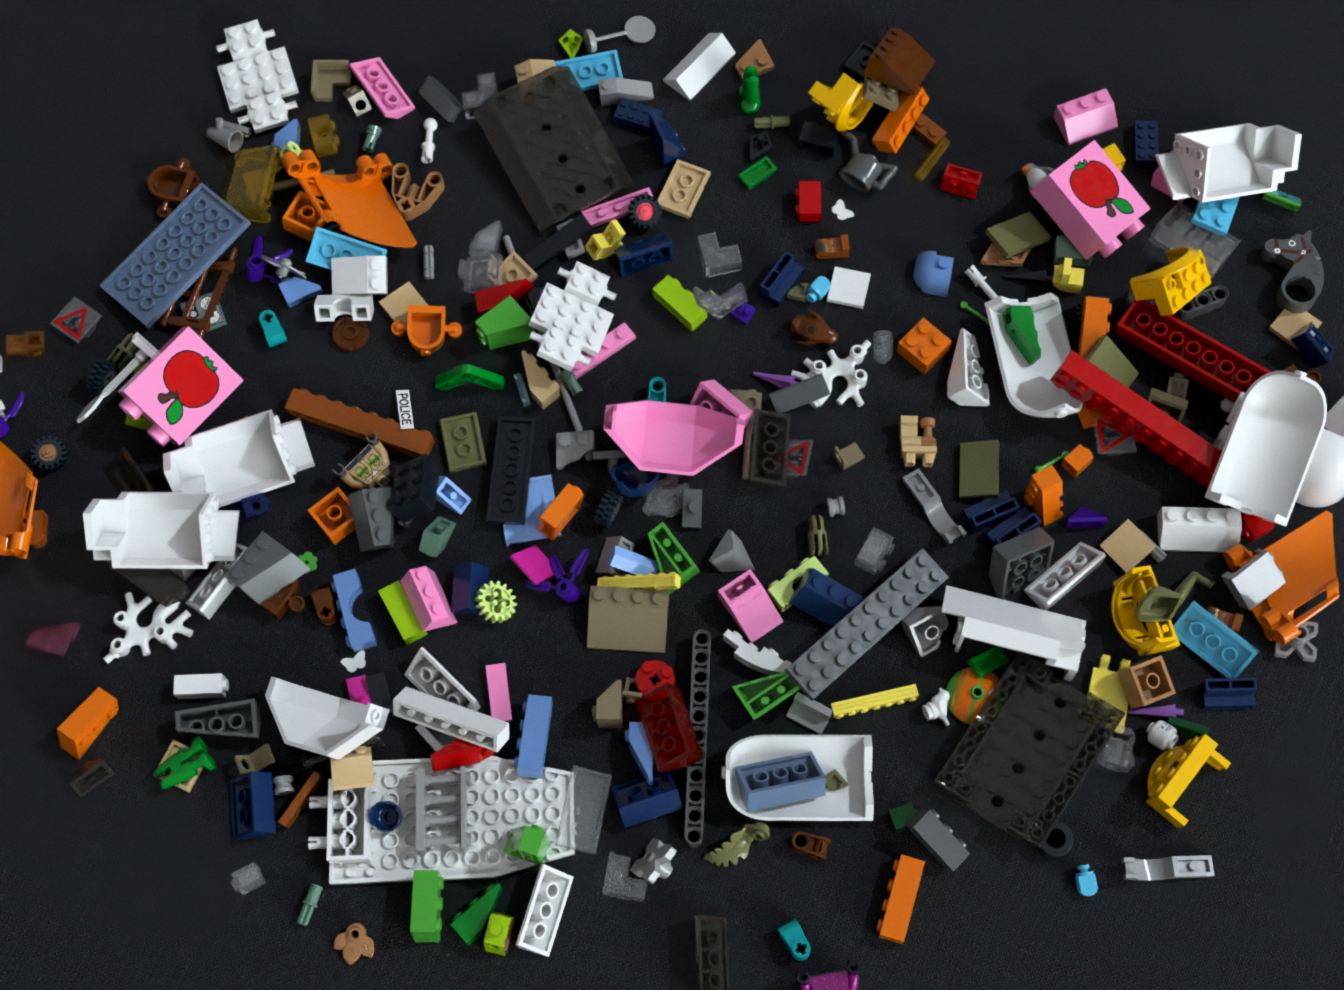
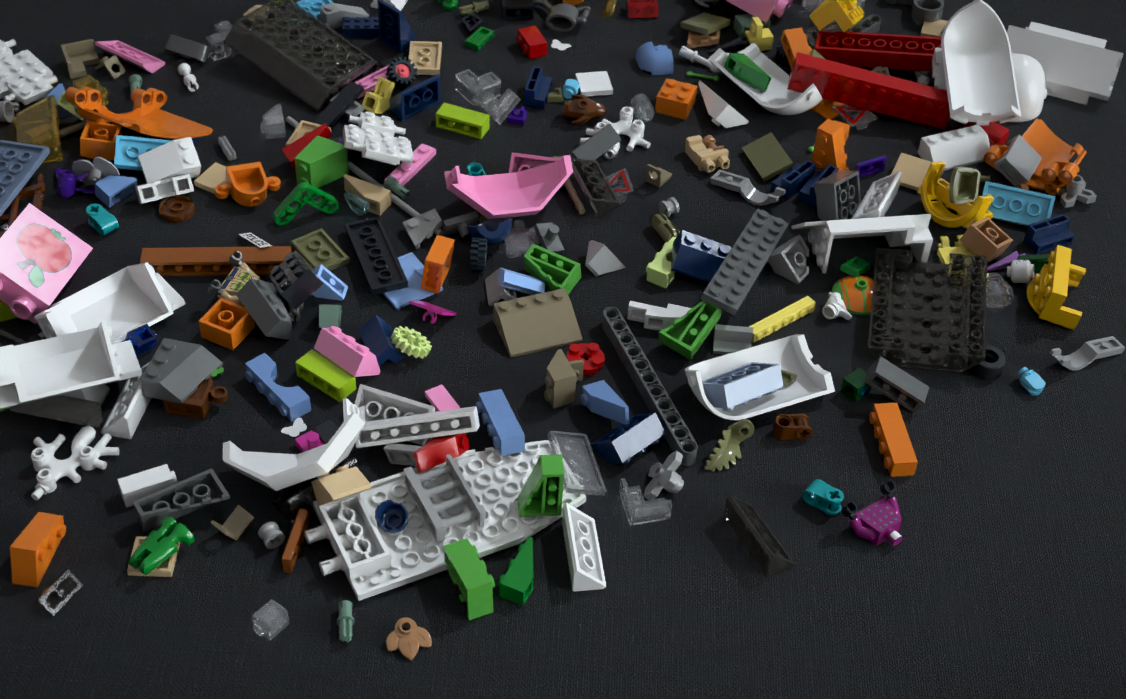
camera: 30 degrees left, 25 degrees down
(252, 805) = (245, 561): dark blue slope -> none
(325, 603) = (246, 392): reddish brown piece -> none
(408, 204) = (199, 114): medium nougat connector -> none
(480, 270) = (277, 137): clear panel -> none
(498, 933) = (549, 570): lime torso -> none
(564, 588) = (470, 313): dark purple plant -> none
(650, 581) = (549, 283): light yellow piece -> none
(669, 728) = (622, 373): clear red slope -> none
(750, 606) = (636, 283): bright pink slope -> none
(779, 380) = (567, 147): medium lavender piece -> none
(832, 247) = (567, 63): dark orange leg -> none
(874, 551) = (718, 225): clear brick -> none

